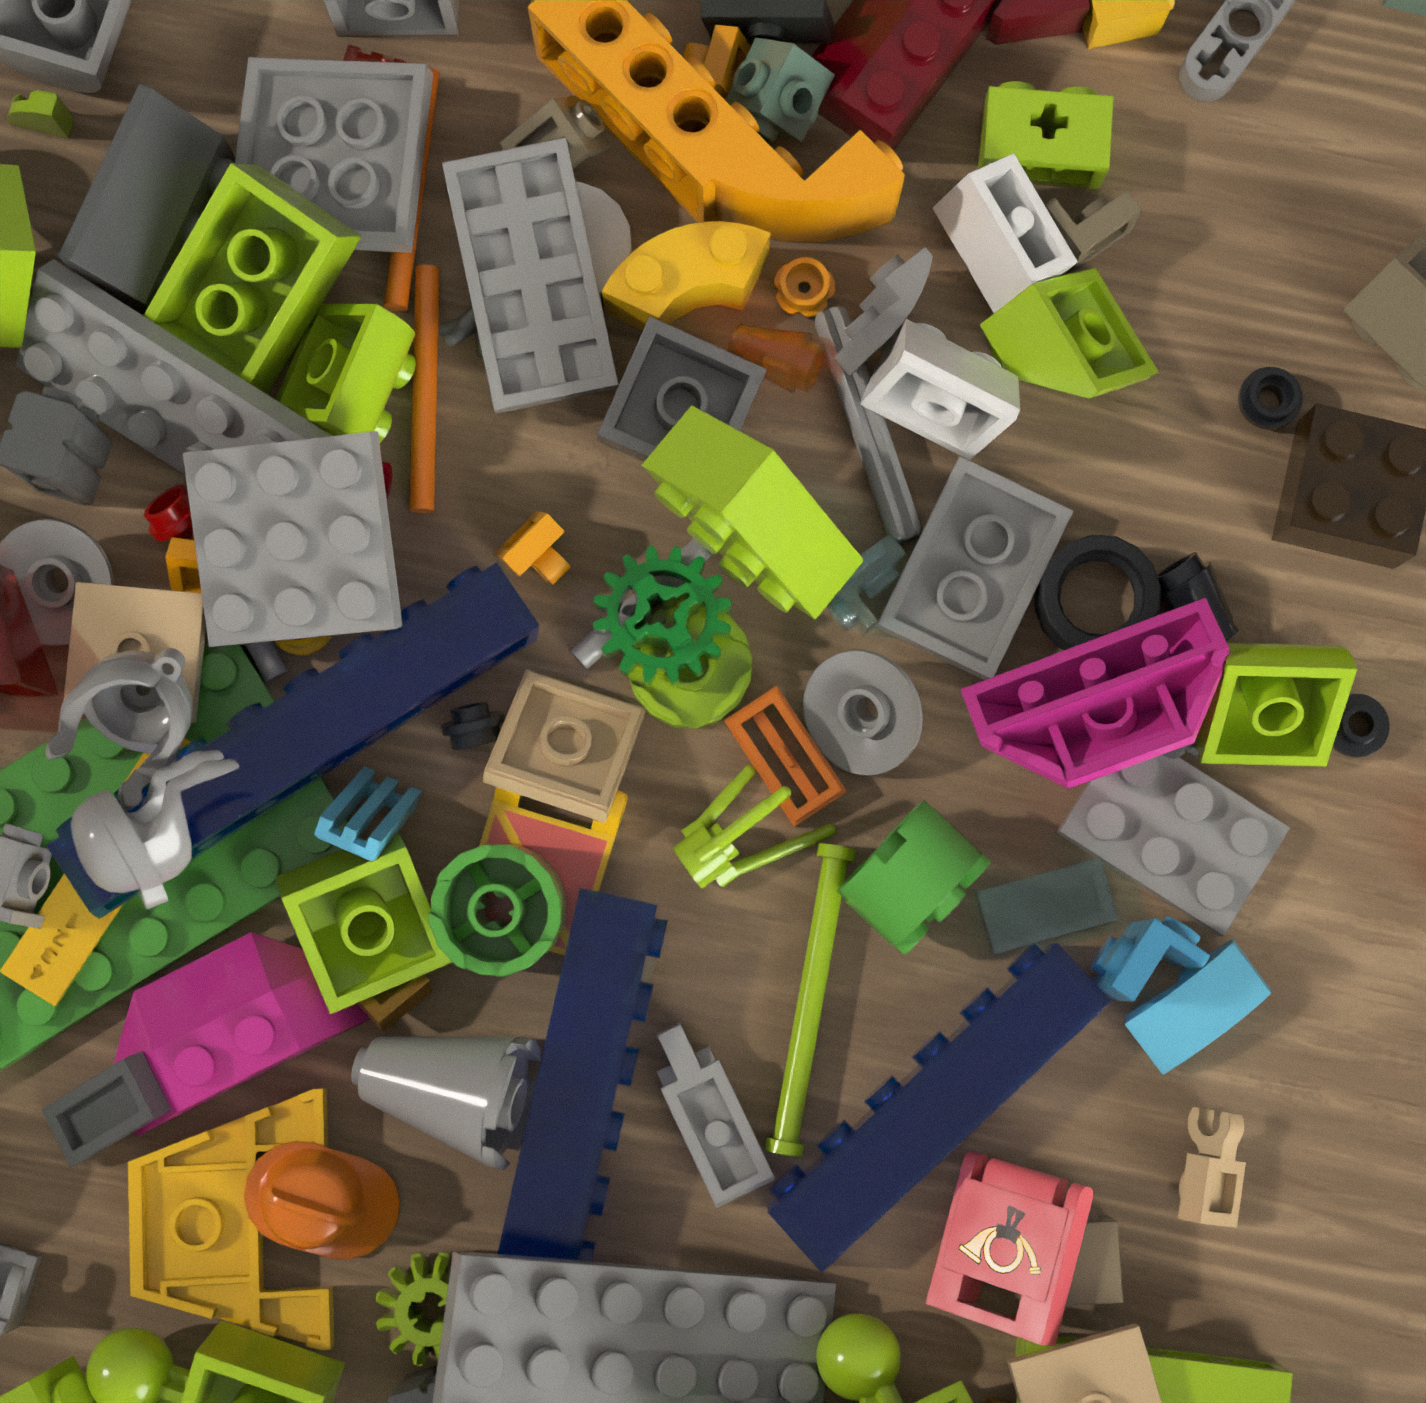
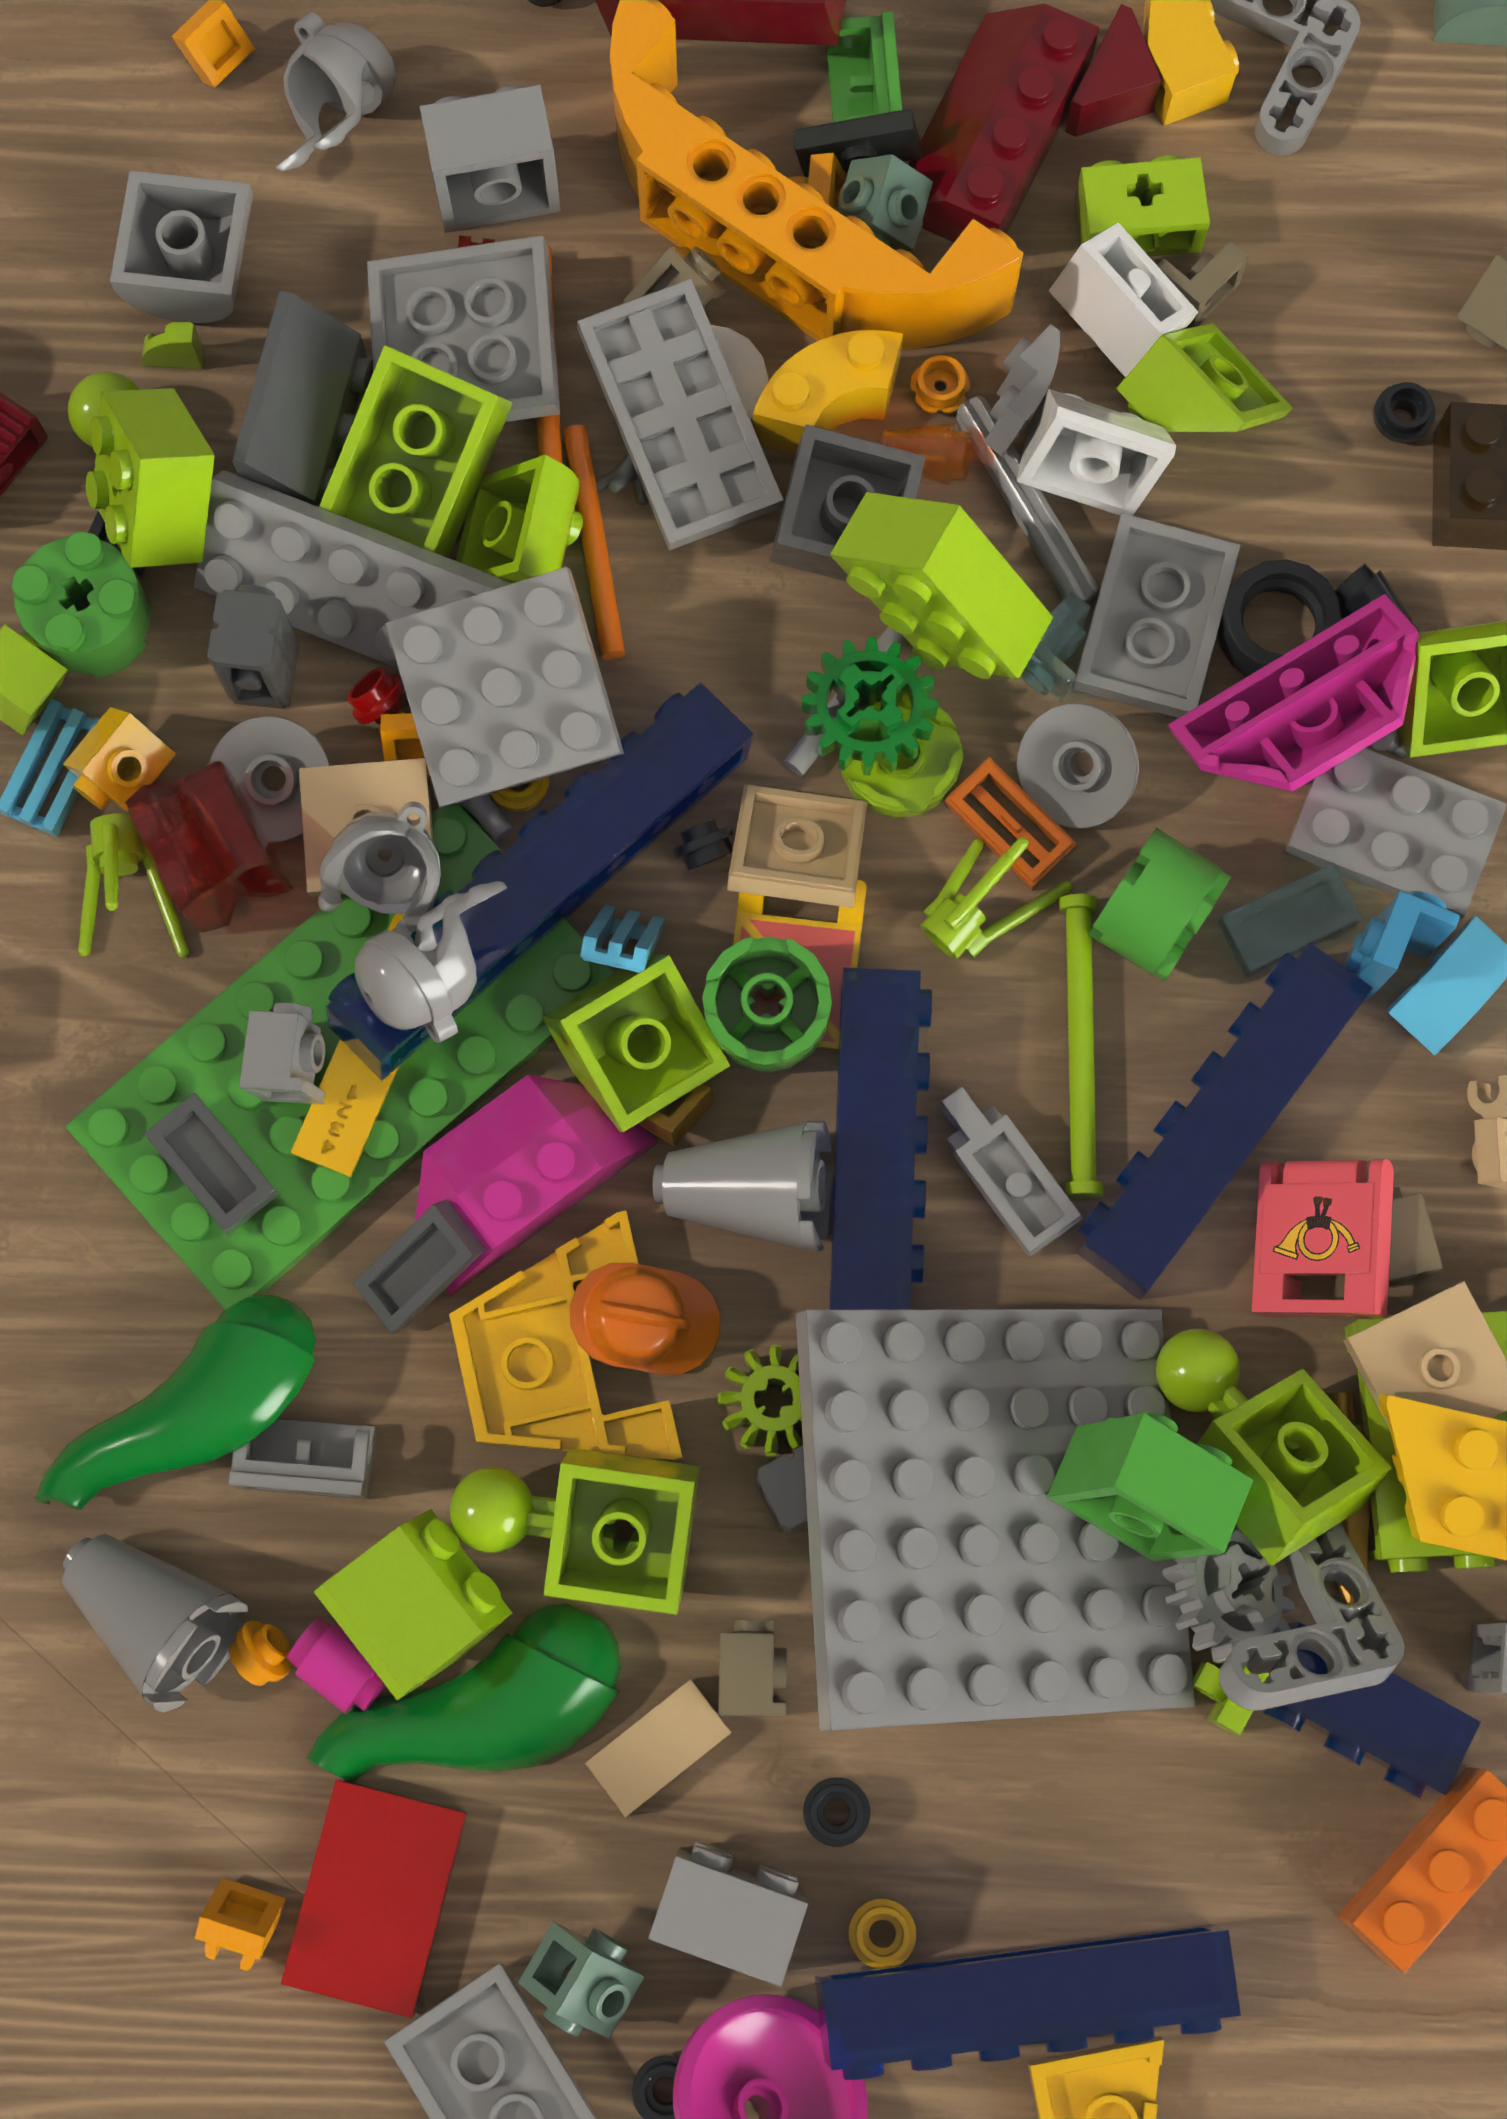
camera: 10 degrees left, 5 degrees down
(532, 547) = (730, 670): light orange tile -> none

